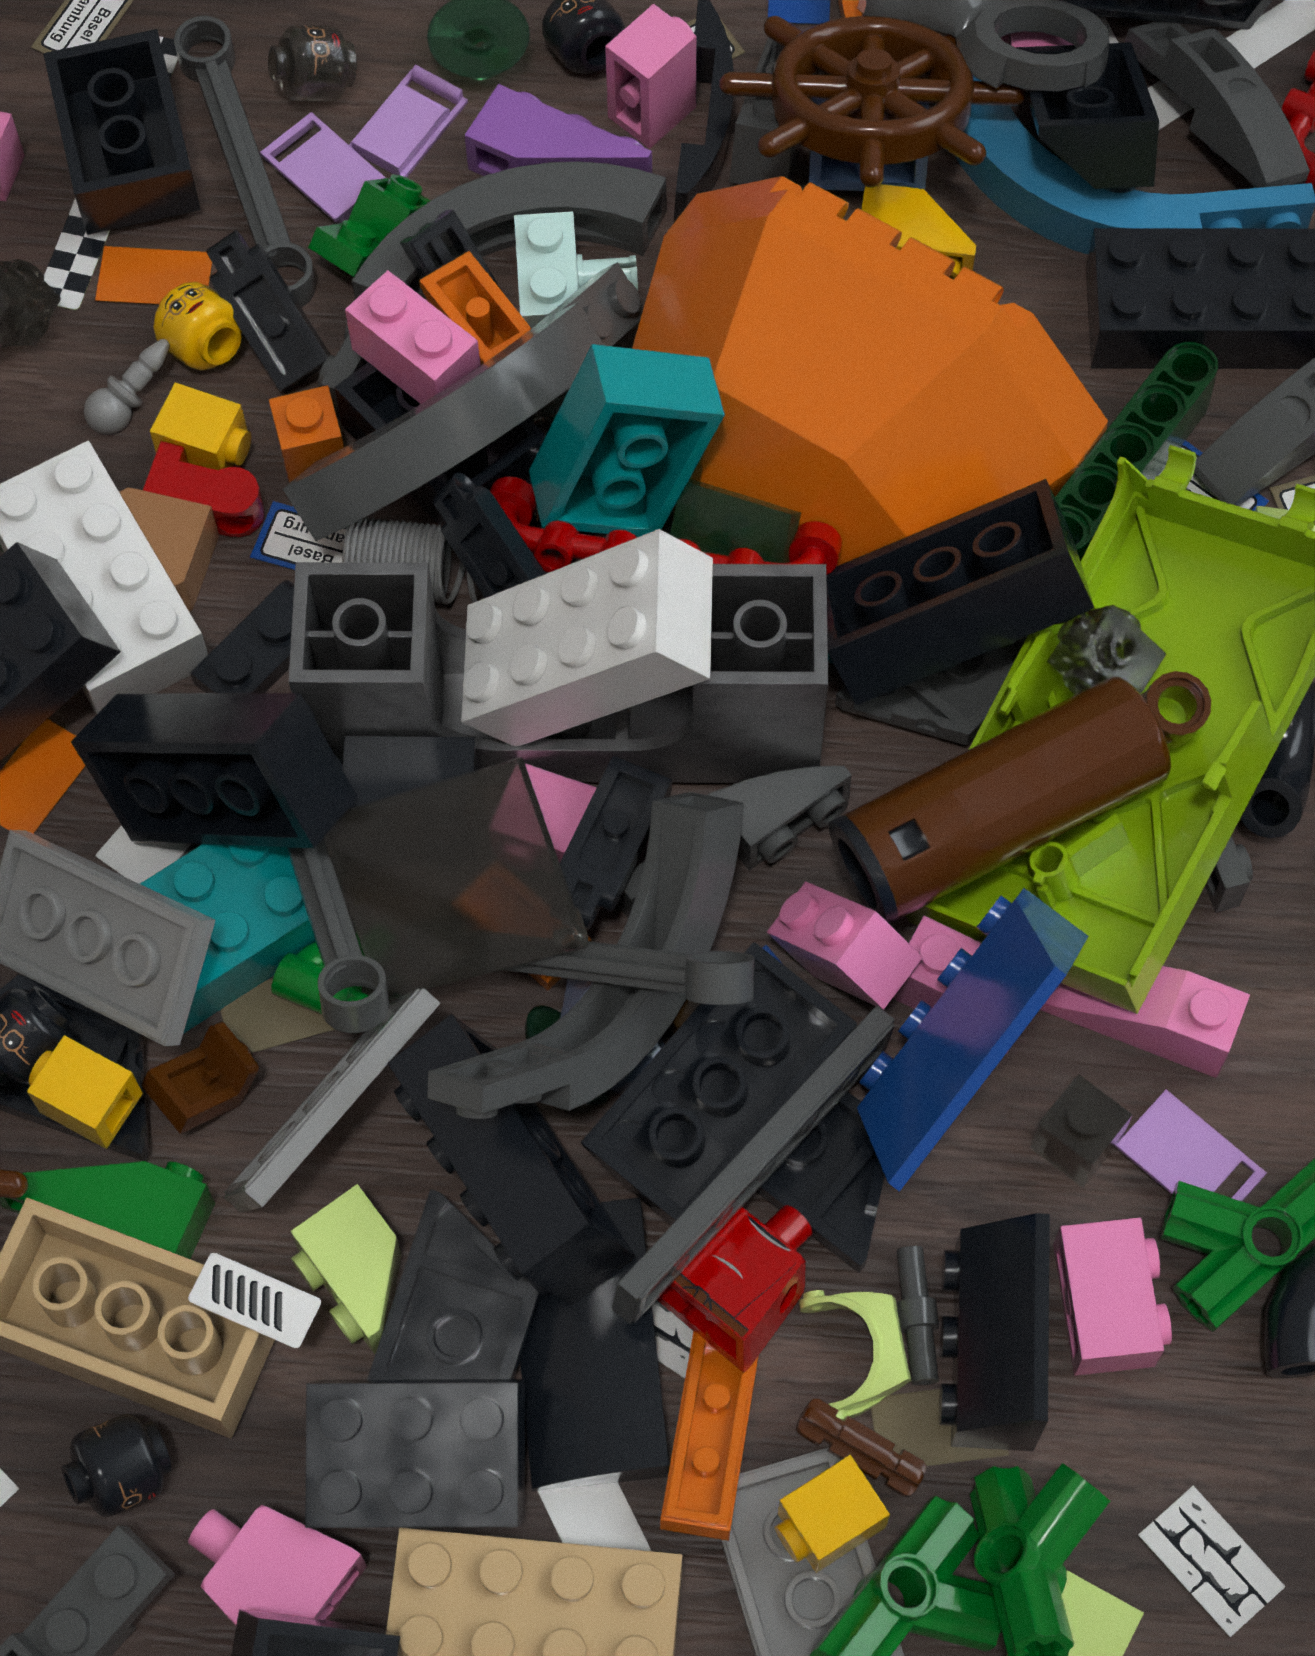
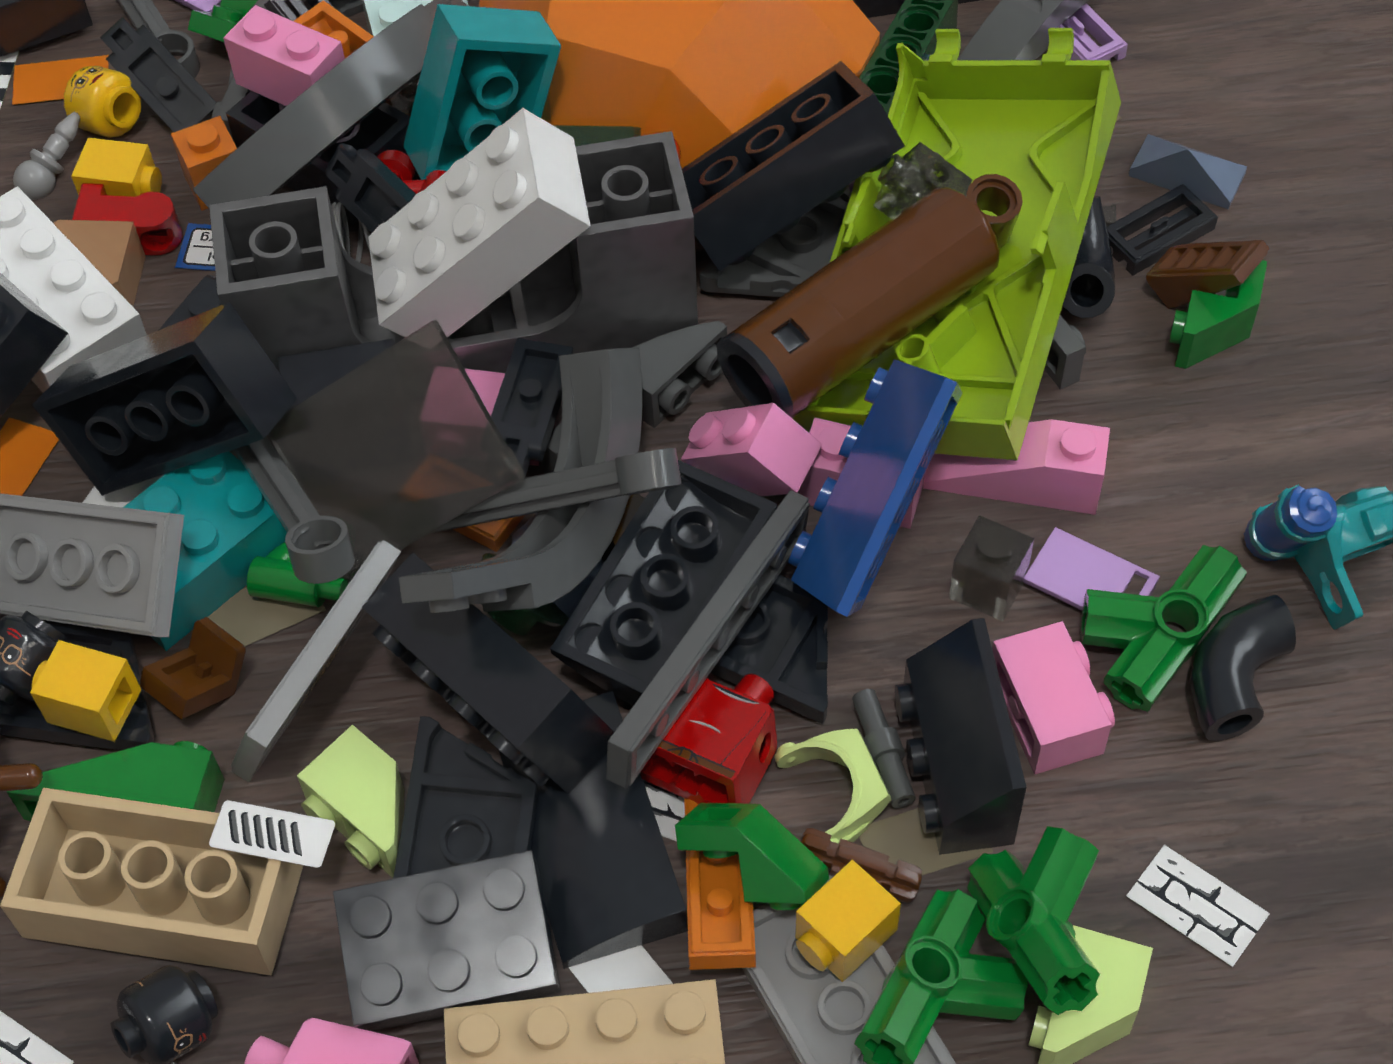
camera: 10 degrees left, 10 degrees down
(768, 1430) = (771, 859): none -> green slope

